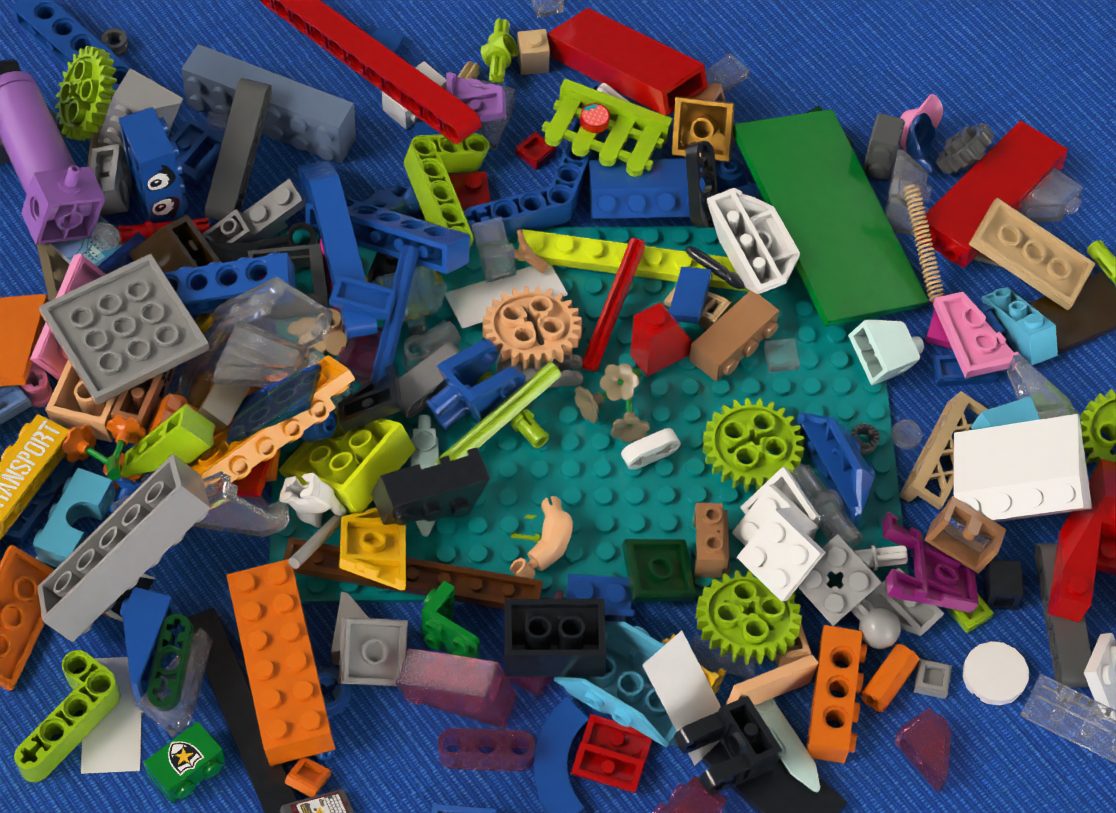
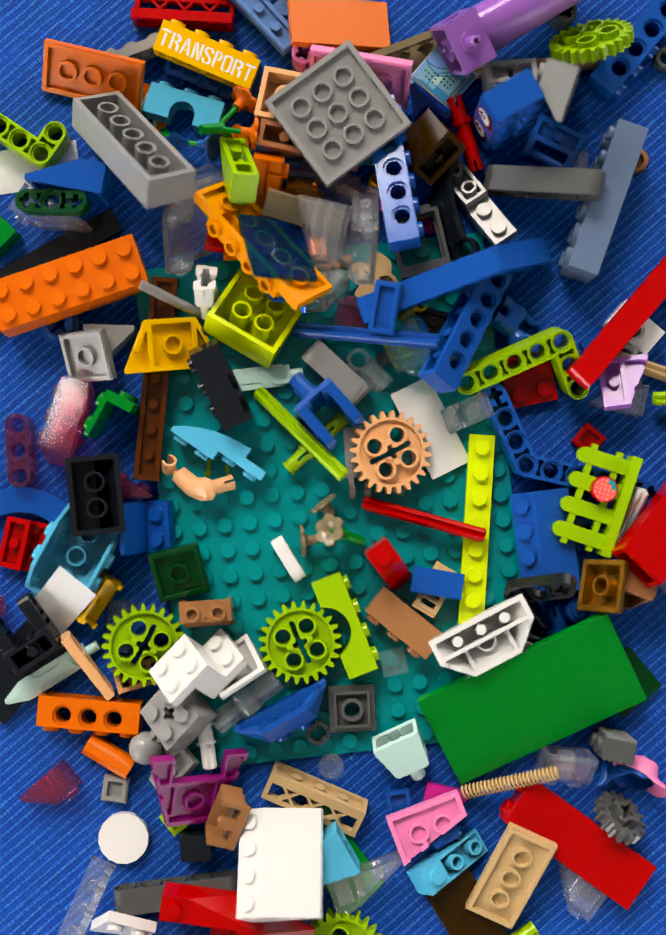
camera: 90 degrees right, 30 degrees up
(106, 236) = (447, 86): clear plate -> none
(371, 401) = (298, 329): black wing -> none
(504, 511) = (211, 444): none -> medium azure slope
(528, 255) = (464, 442): medium nougat bar -> none
(696, 401) = (357, 654): none -> lime arch
(716, 268) = (467, 601): black piece -> none
(850, 388) = (360, 694): none -> dark grey piece

